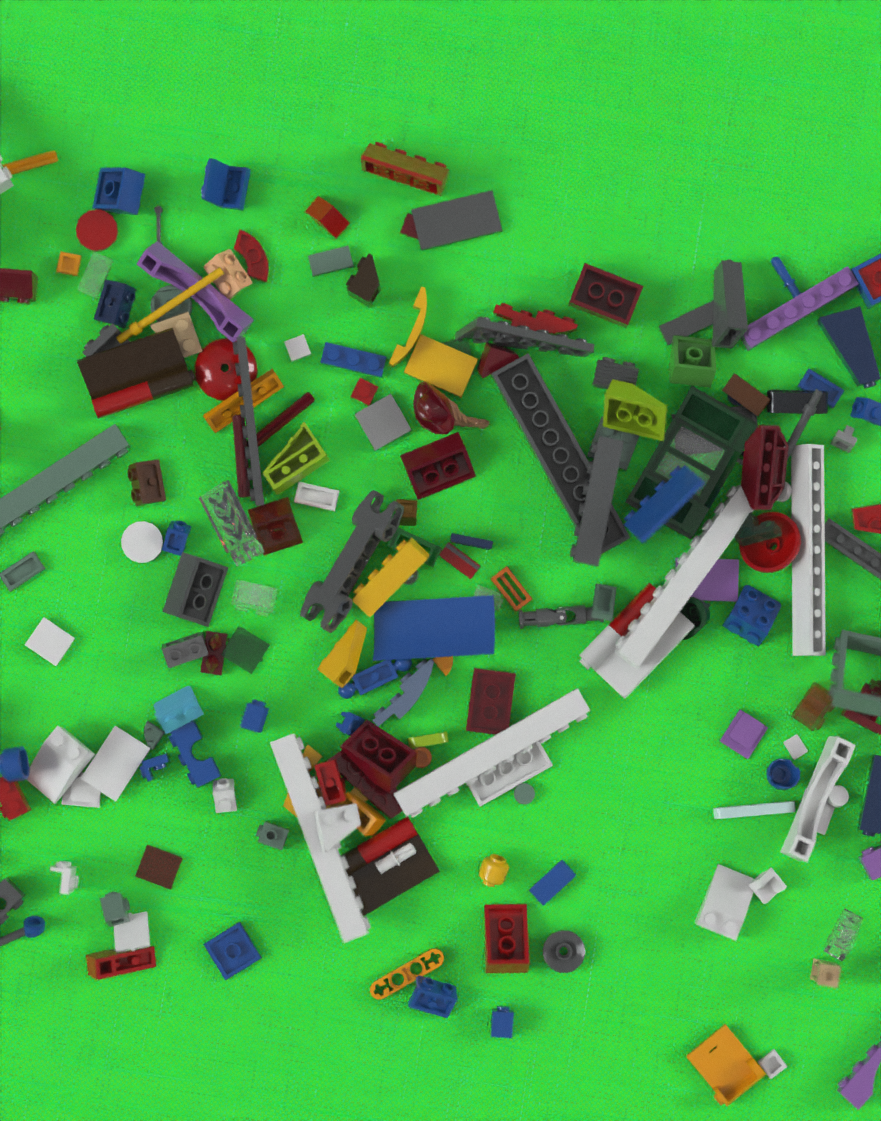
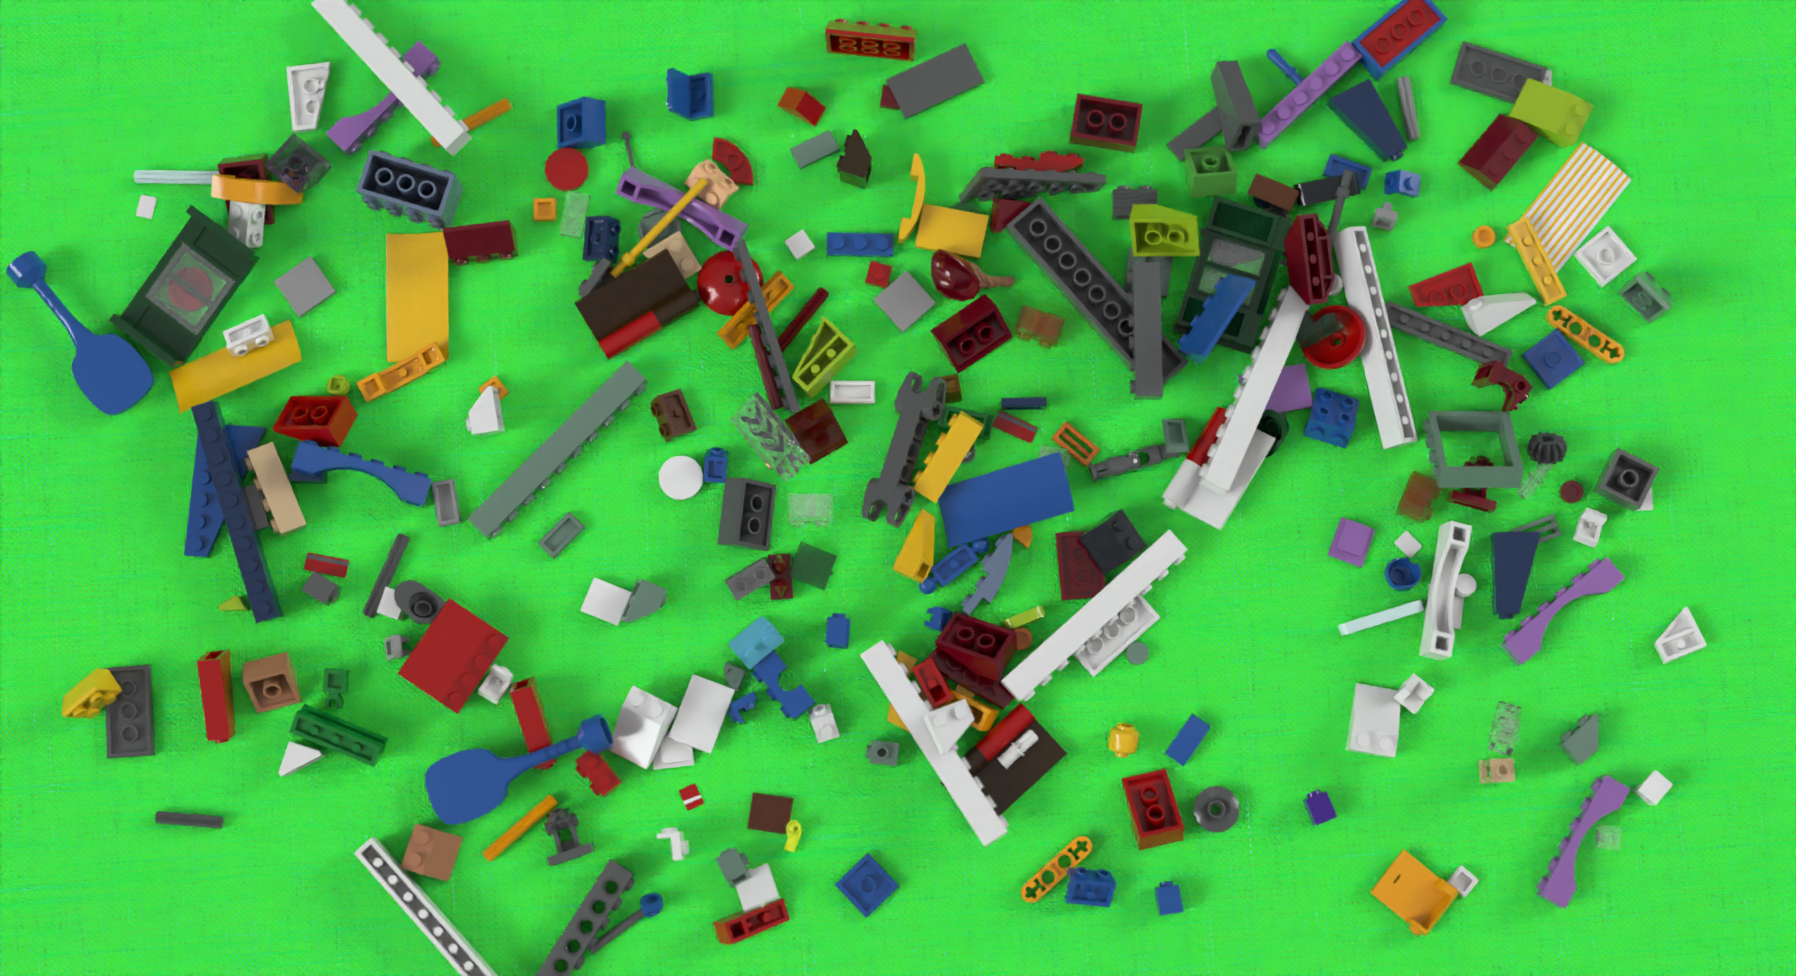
camera: 10 degrees left, 5 degrees down
(84, 649) = (643, 600): none -> sand green slope
(90, 836) = (691, 797): none -> red sticker
(176, 890) = (794, 833): none -> neon yellow arm
(501, 472) = (1039, 326): none -> clear orange brick
(523, 687) = (1112, 541): none -> black slope
(657, 970) = (1319, 807): none -> dark purple brick

